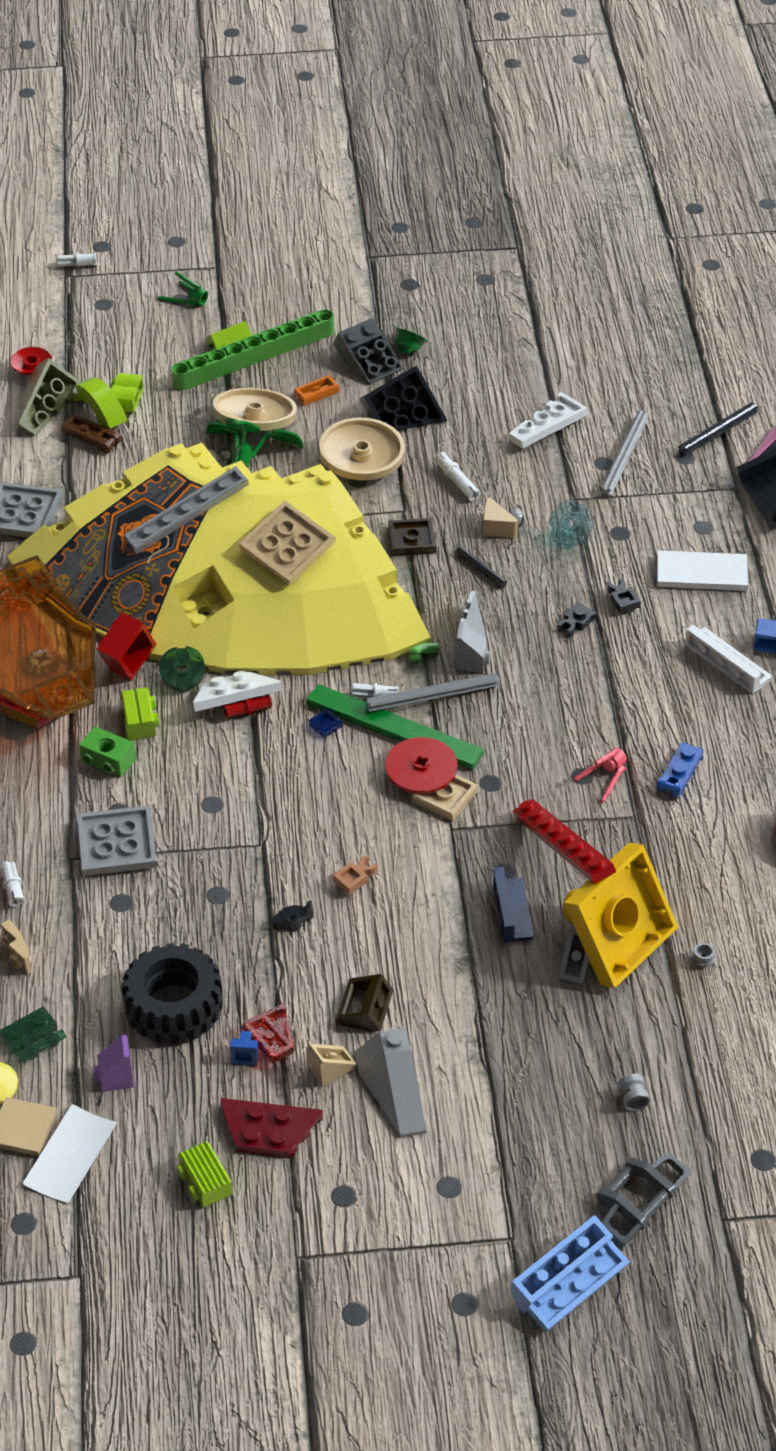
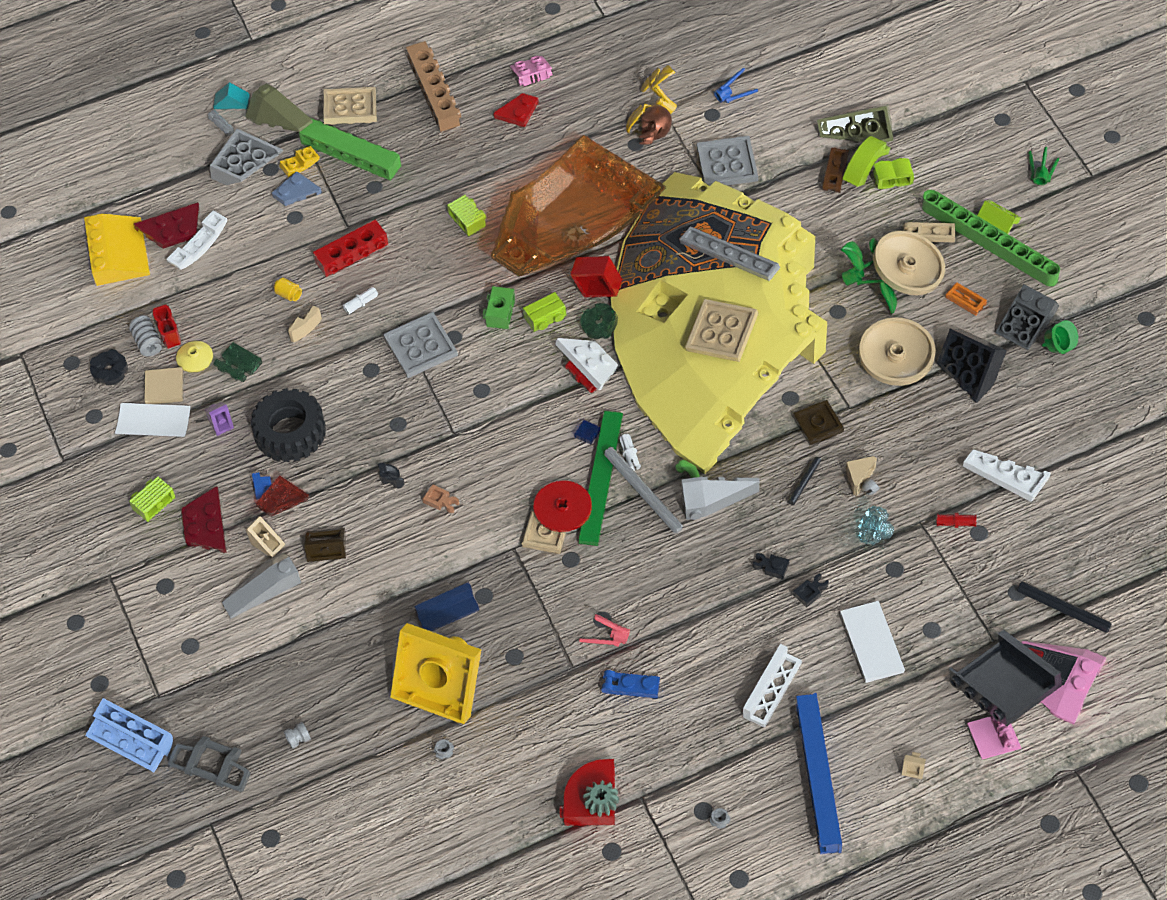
camera: 75 degrees right, 10 degrees up
(27, 358) = (899, 98): red dish -> none
(77, 260) = (1044, 80): white axle -> none
(222, 381) = (933, 231): none -> tan plate
(452, 471) = (908, 424): white pin -> none
(564, 841) = (490, 613): red plate -> none
(586, 470) = (956, 520): none -> red pin
(624, 453) = (996, 543): light grey axle -> none

